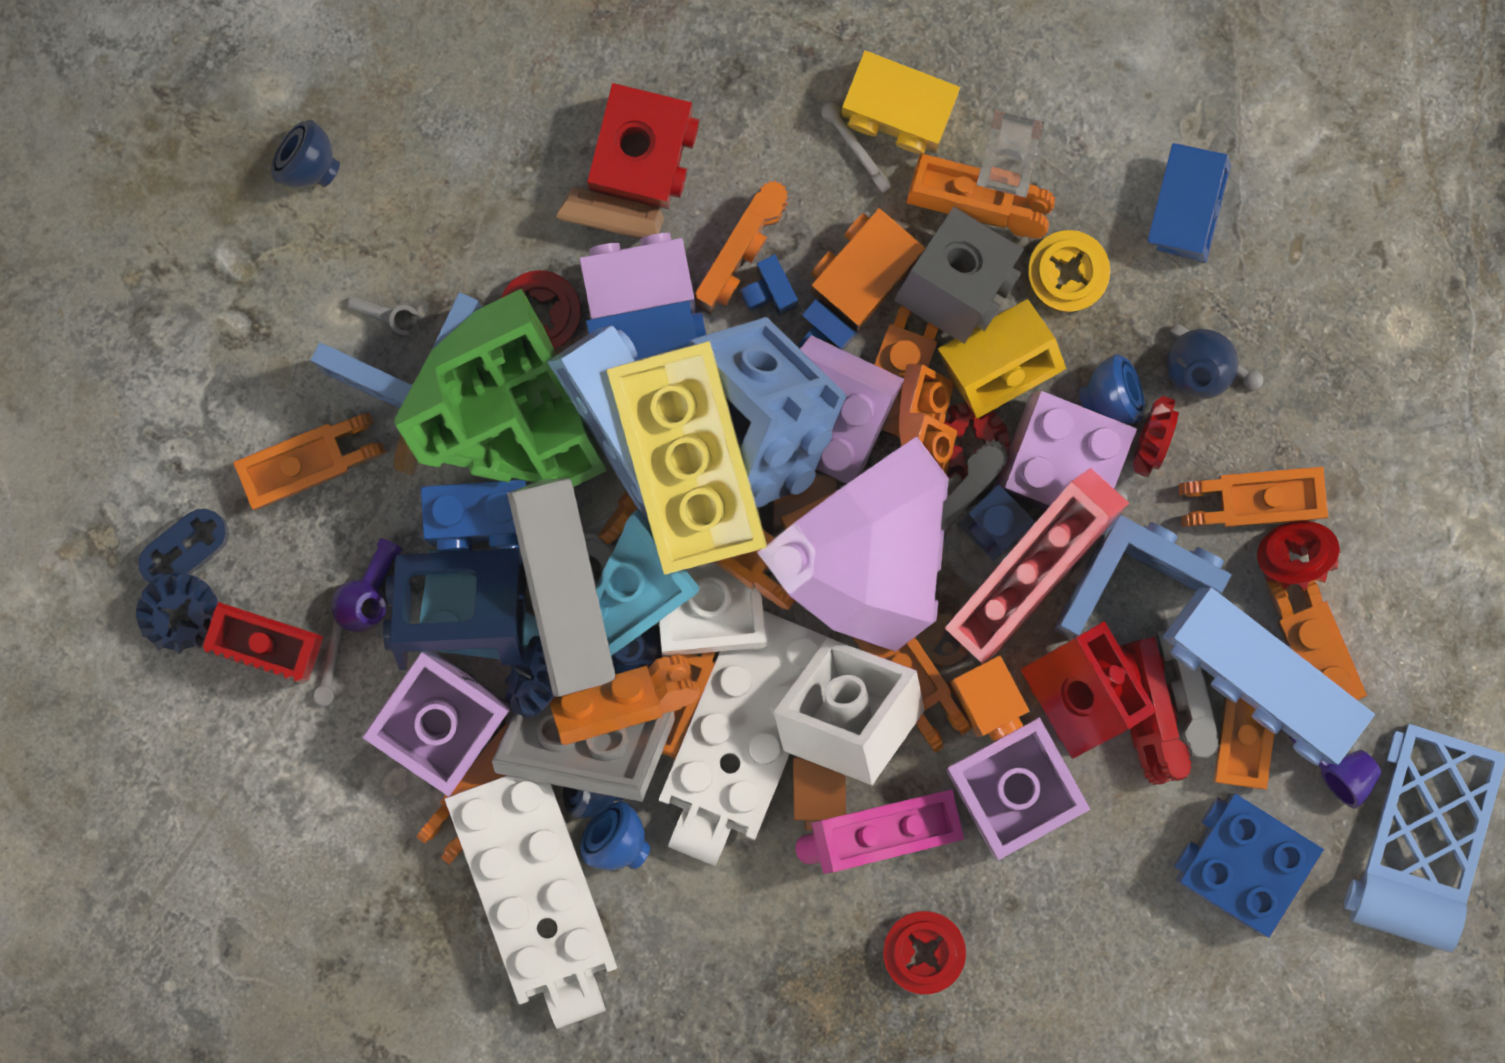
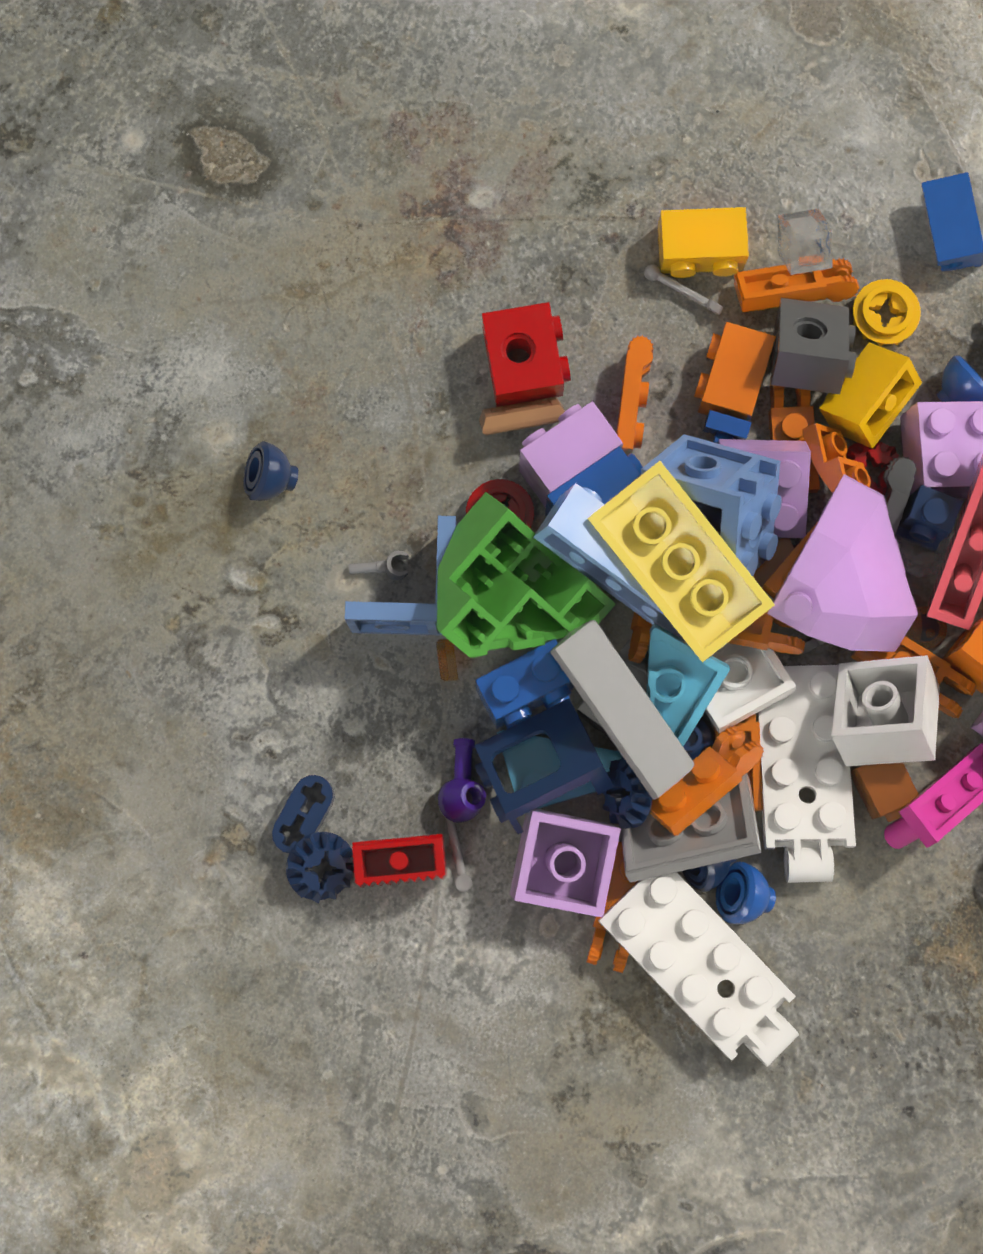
camera: 20 degrees left, 5 degrees down
(303, 462) = (368, 706): orange hinge -> none
(772, 287) = (670, 417): blue tile -> none

